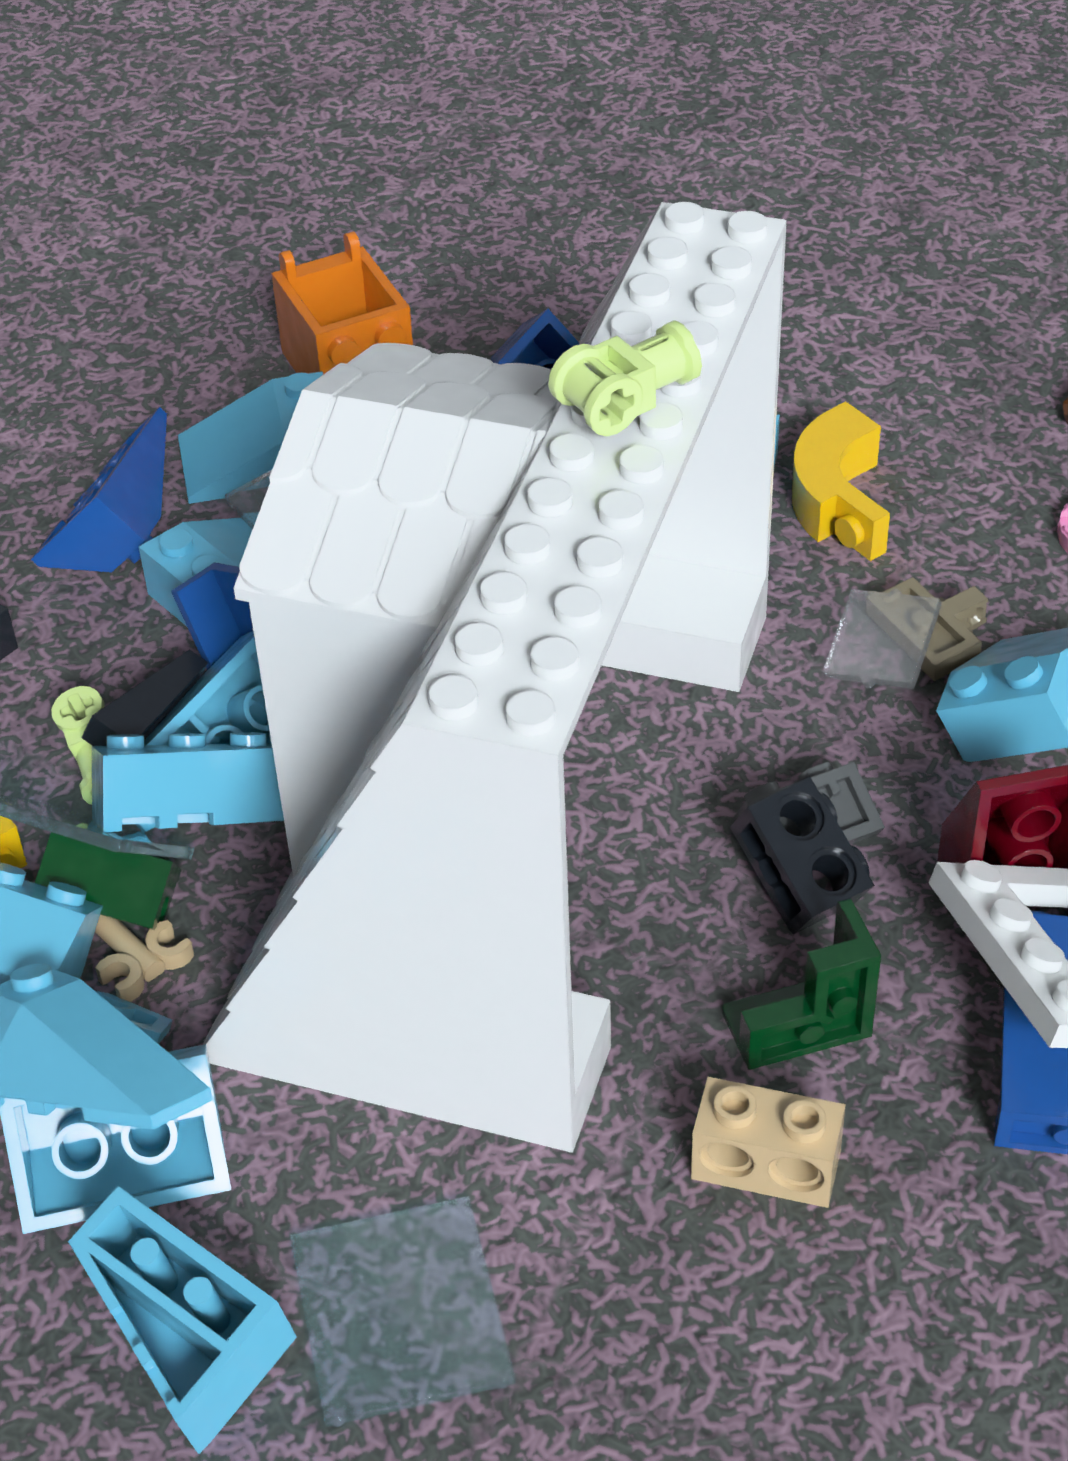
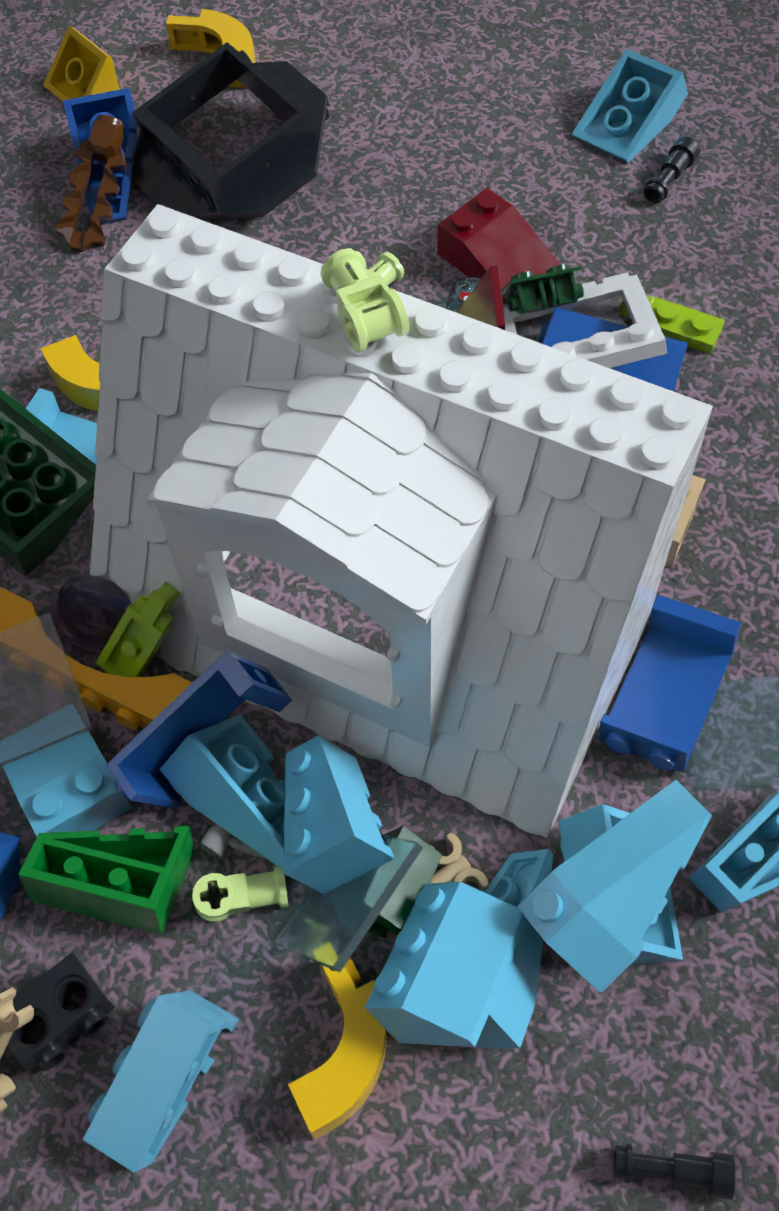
camera: 80 degrees left, 15 degrees up
(102, 623) = (111, 876): none -> green wedge
(147, 703) = (232, 841): black piece -> none
(449, 1179) = (671, 684): none -> blue panel

